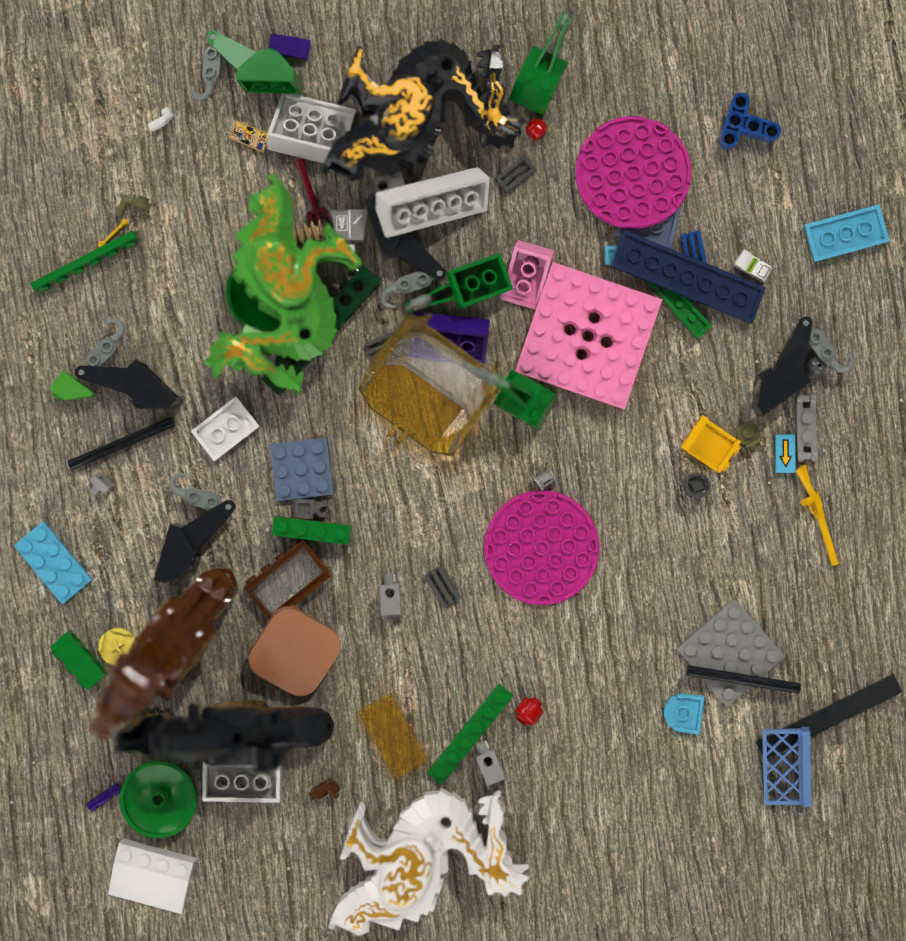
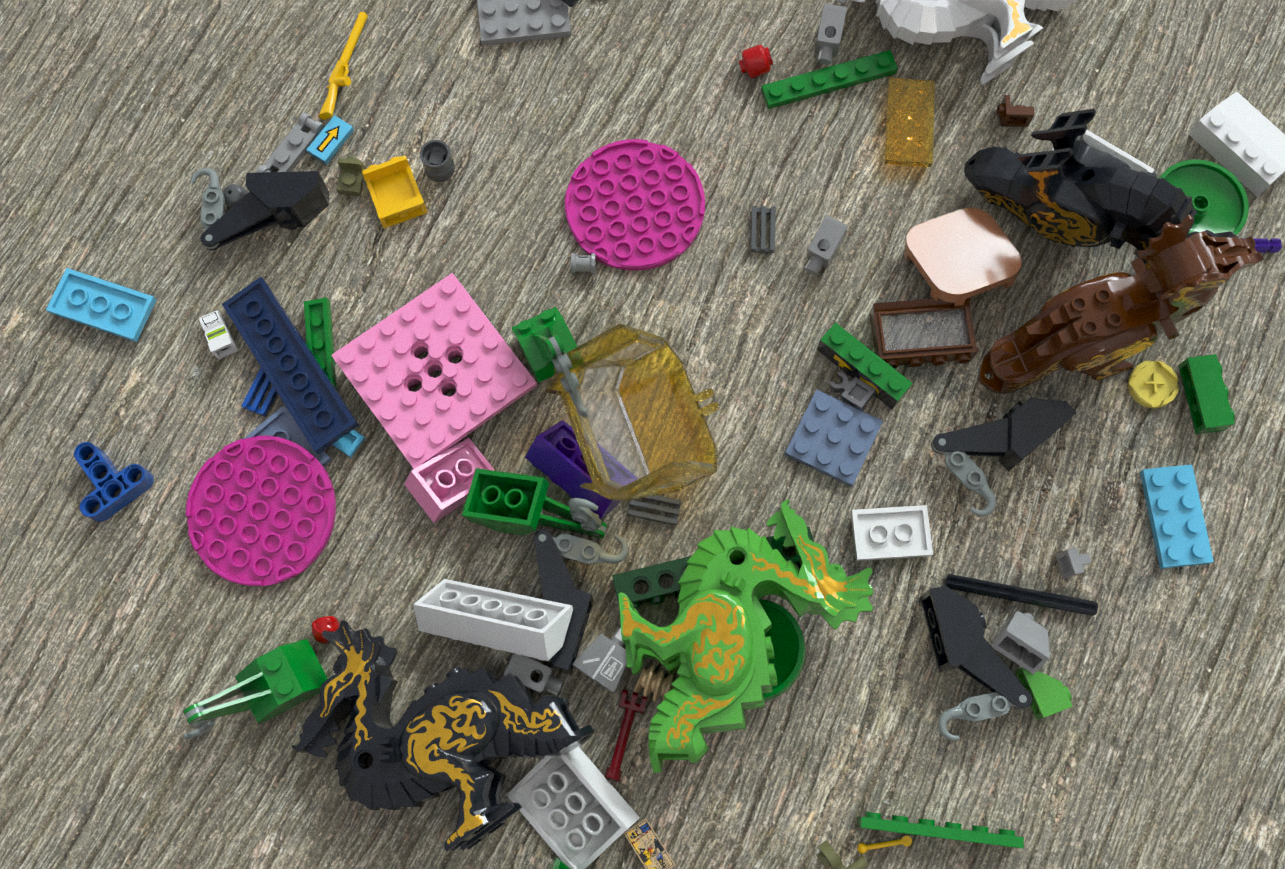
camera: 150 degrees left, 15 degrees down
(102, 409) = (1023, 641): none -> light grey torso
(521, 179) = (385, 607): dark grey tile -> none

